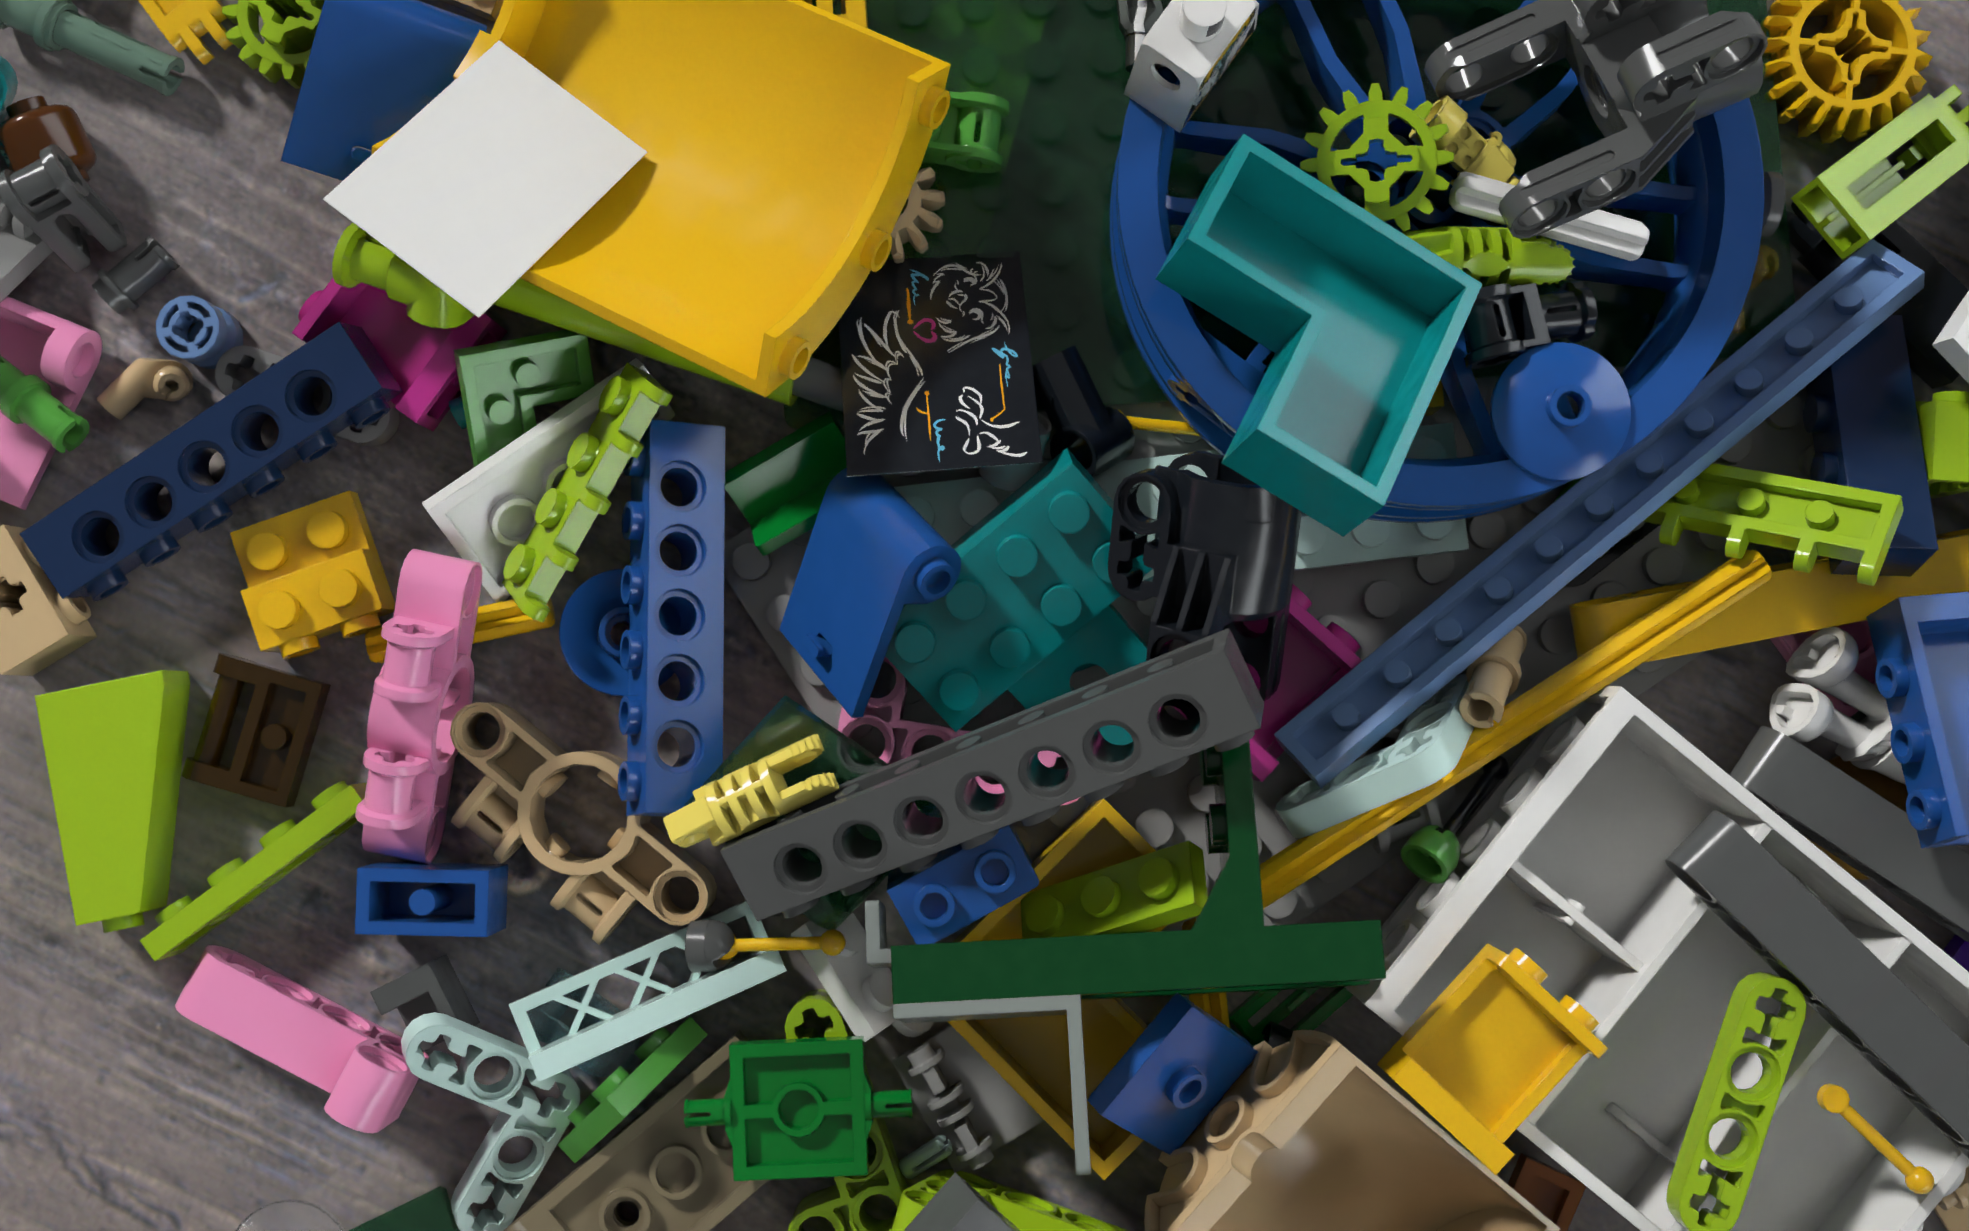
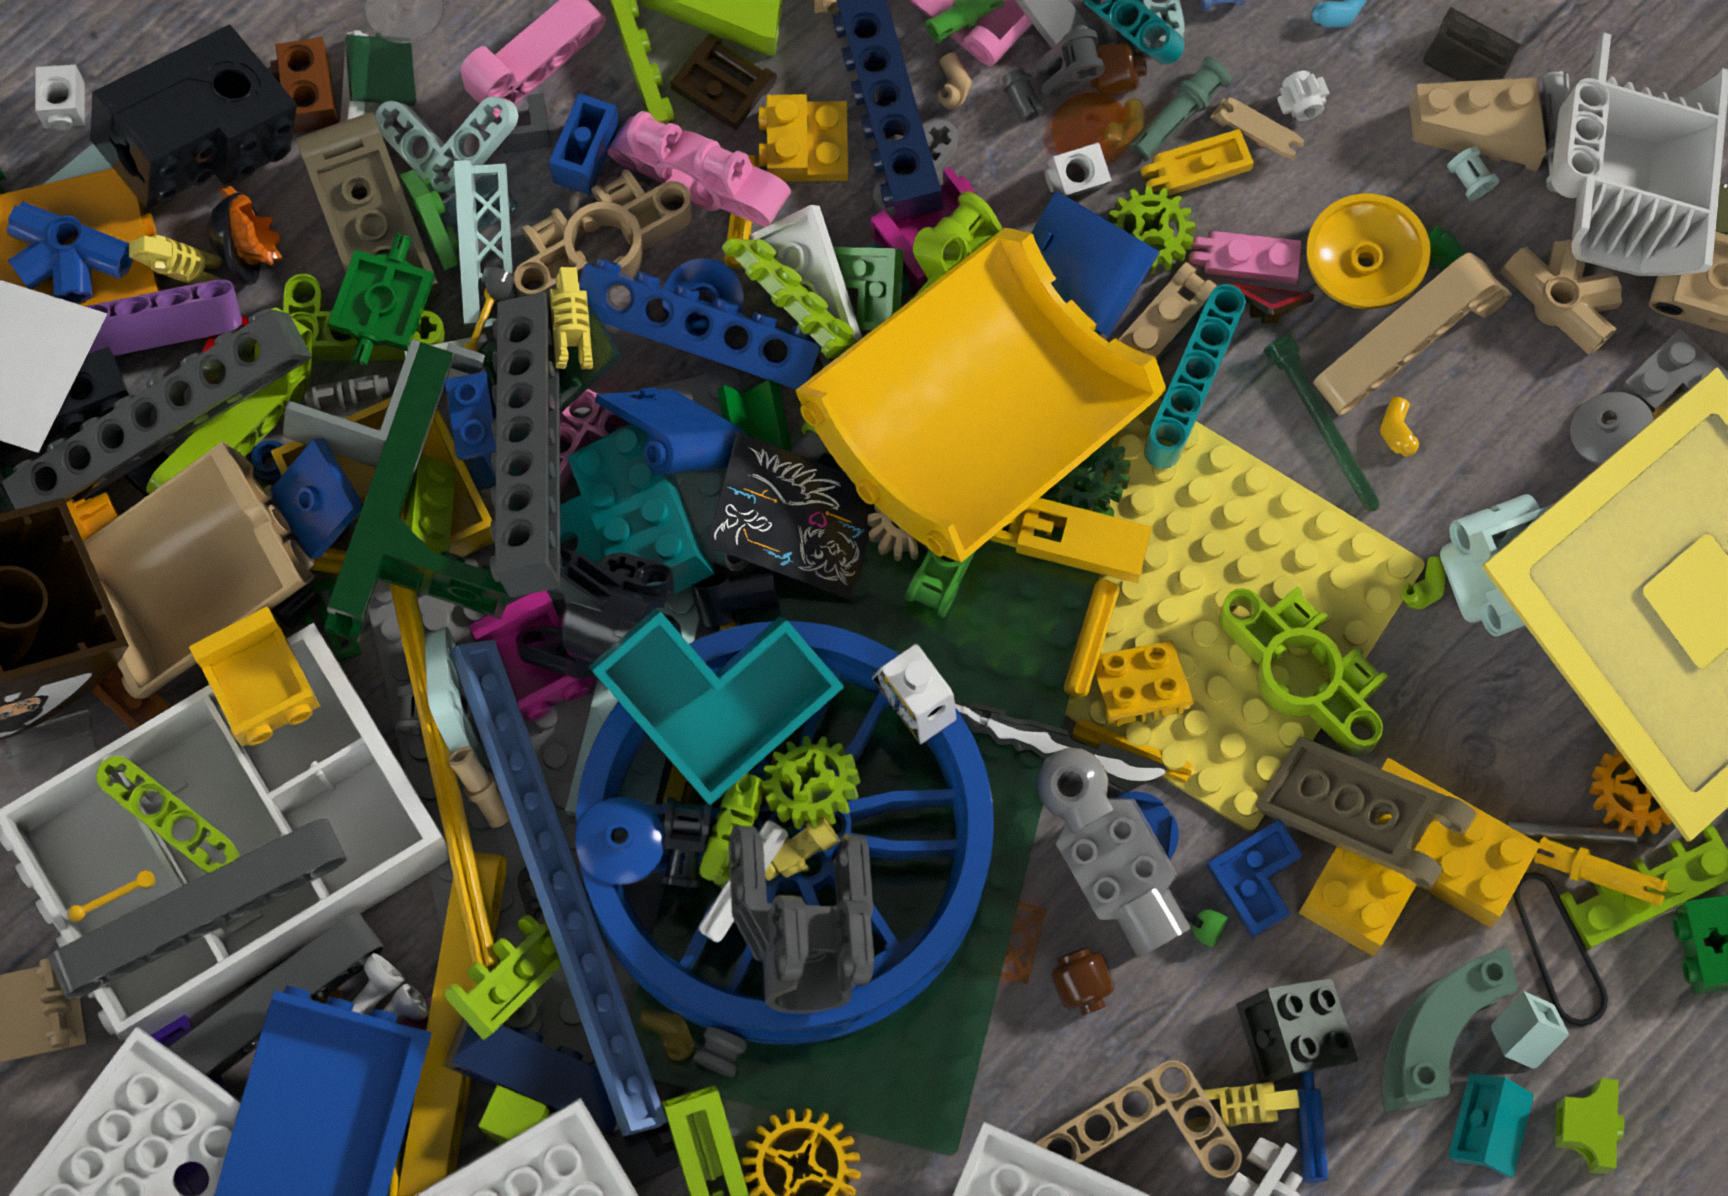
camera: 105 degrees right, 15 degrees down
(135, 95) = (1133, 124): none -> clear yellow arm
(178, 179) = (1071, 131): none -> clear orange dish
(209, 337) = (973, 129): medium blue wheel -> none
(233, 123) = (1092, 163): none -> white brick
(486, 178) = (993, 293): white sticker -> none
(925, 1156) = (322, 372): light aqua piece -> none
(1082, 1200) = (259, 455): none -> blue plate
(1434, 850) = (388, 714): bright green hinge -> none

